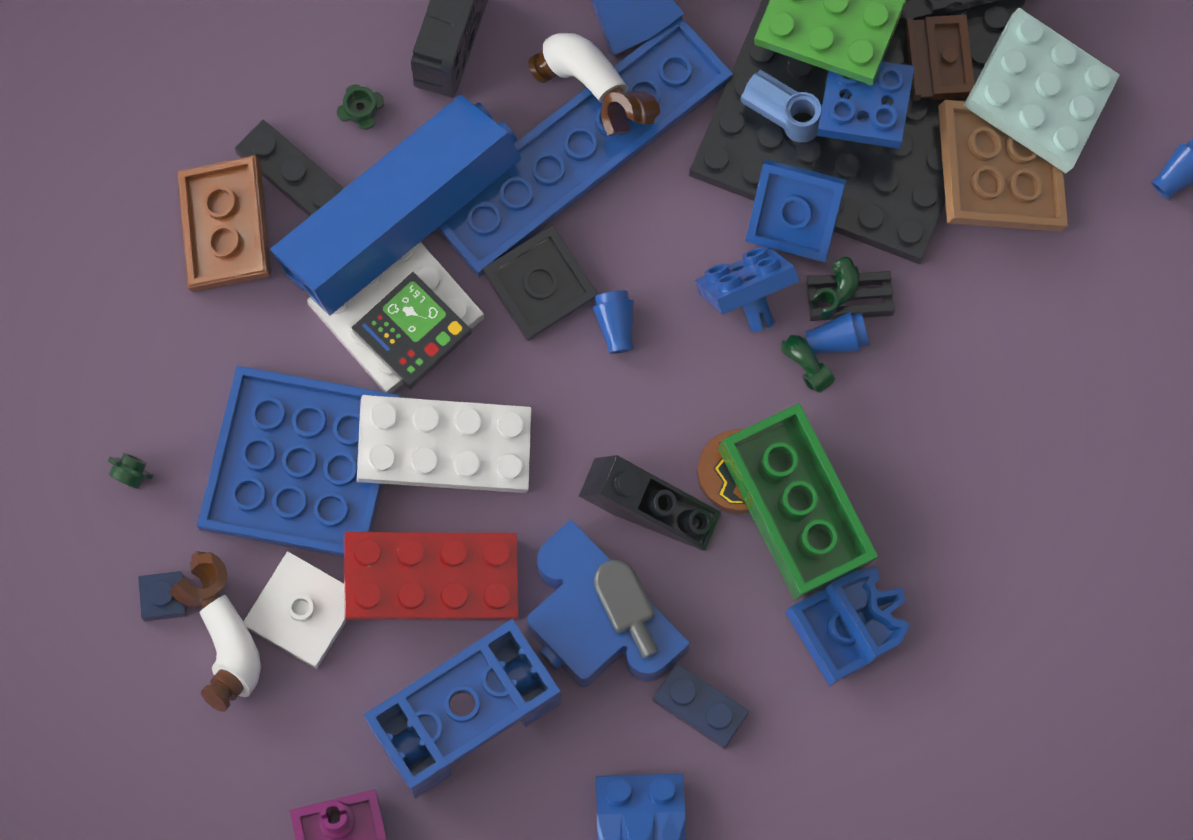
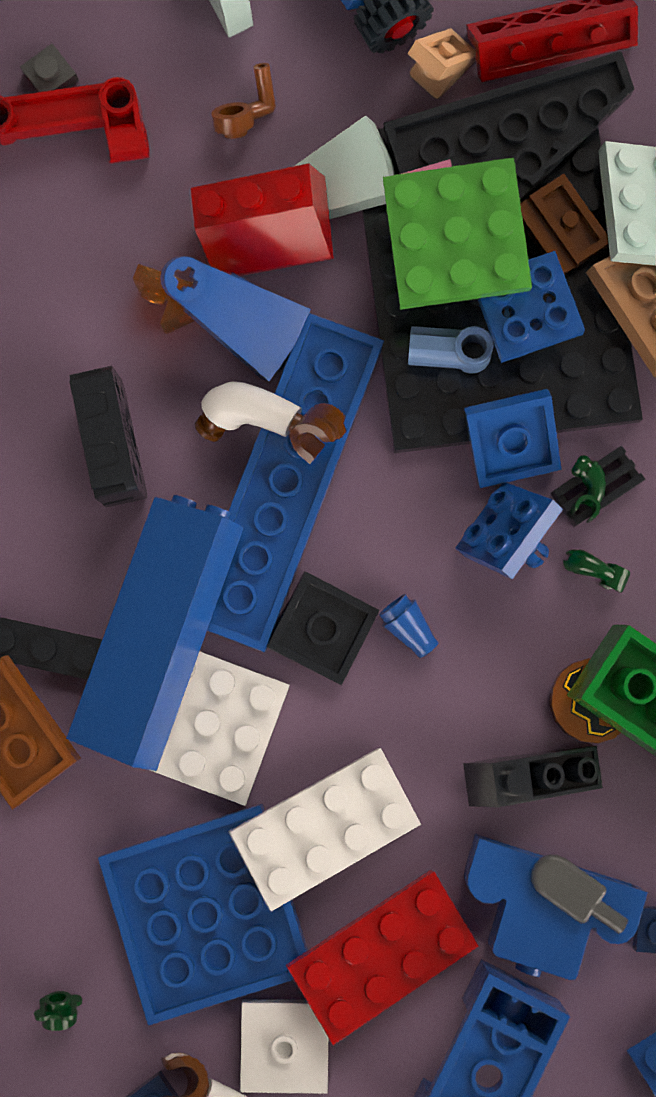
camera: 25 degrees left, 10 degrees up
(358, 95) = (58, 547): dark green plate -> none
(411, 330) = (237, 742): black tile -> none
(839, 335) = (611, 529): blue cone -> none

